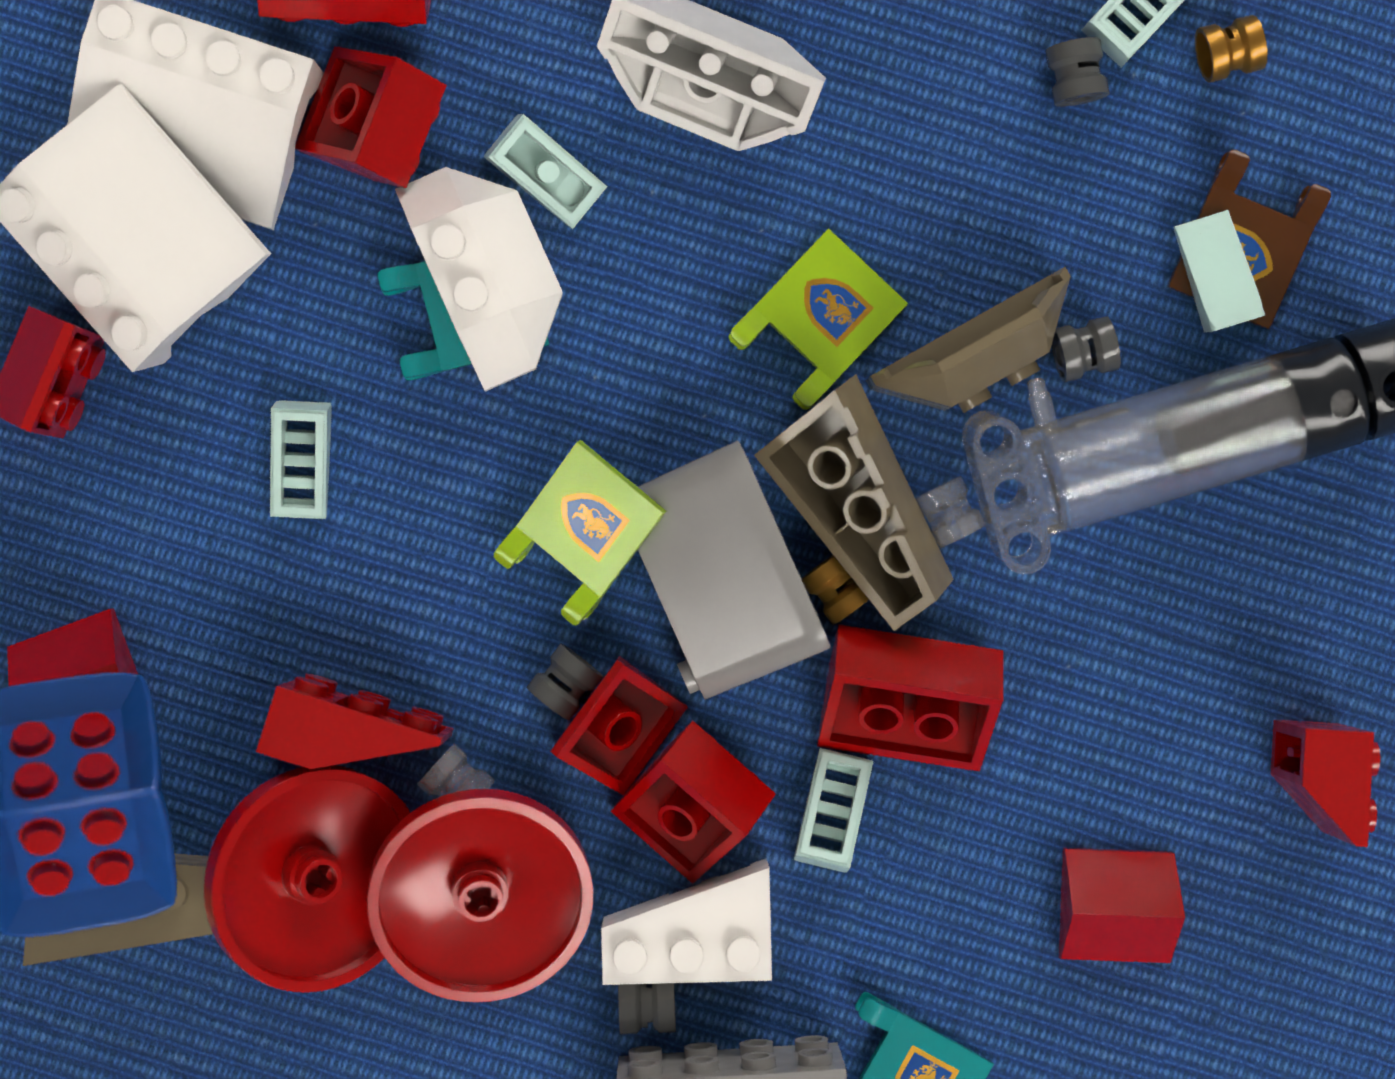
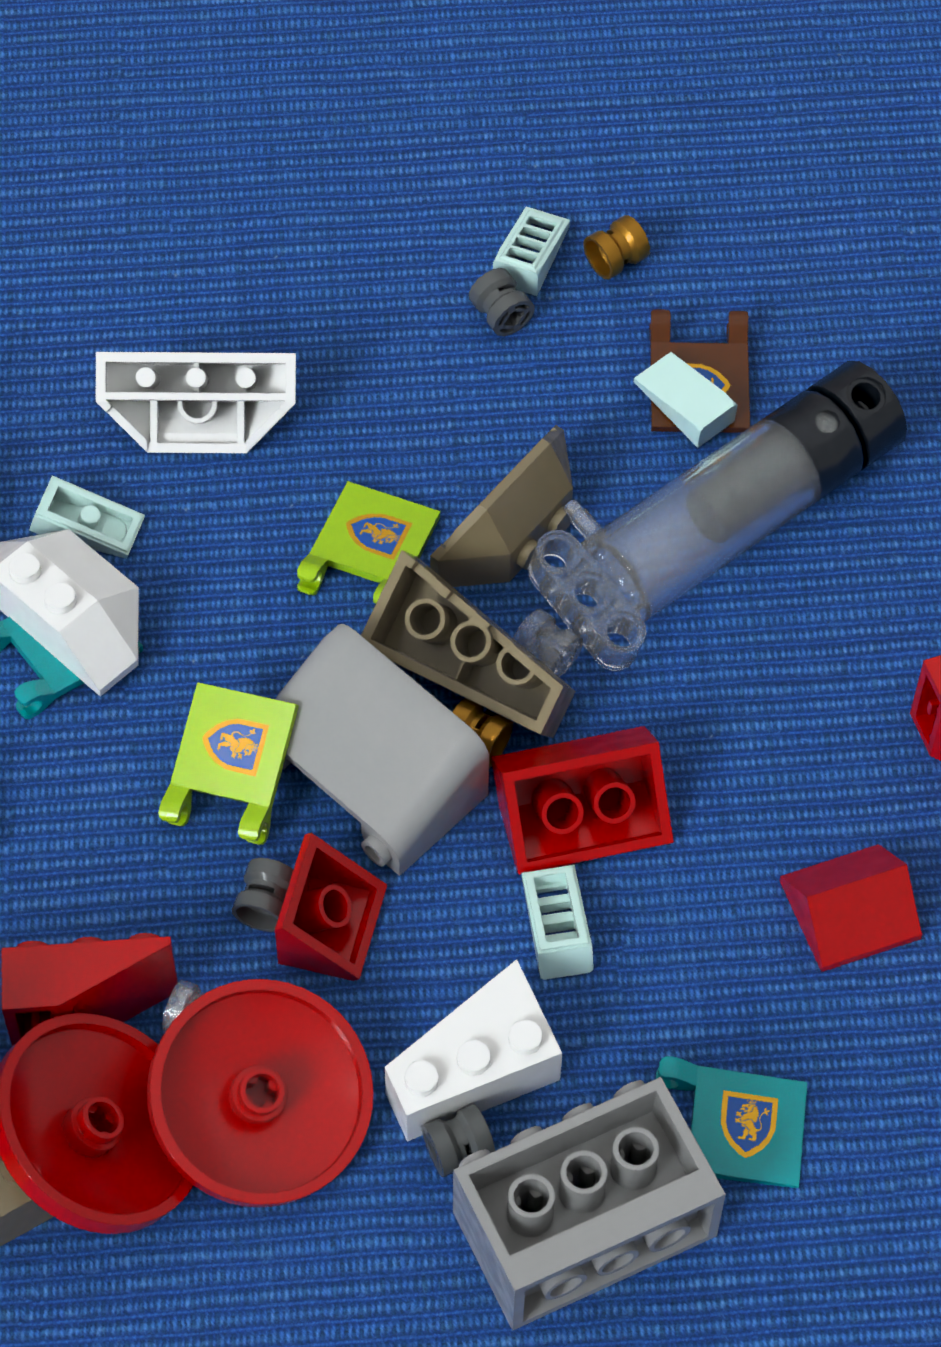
camera: 20 degrees left, 30 degrees down
(694, 802) = (423, 951): red slope -> none
(1086, 349) = (605, 485): dark grey wheel -> none

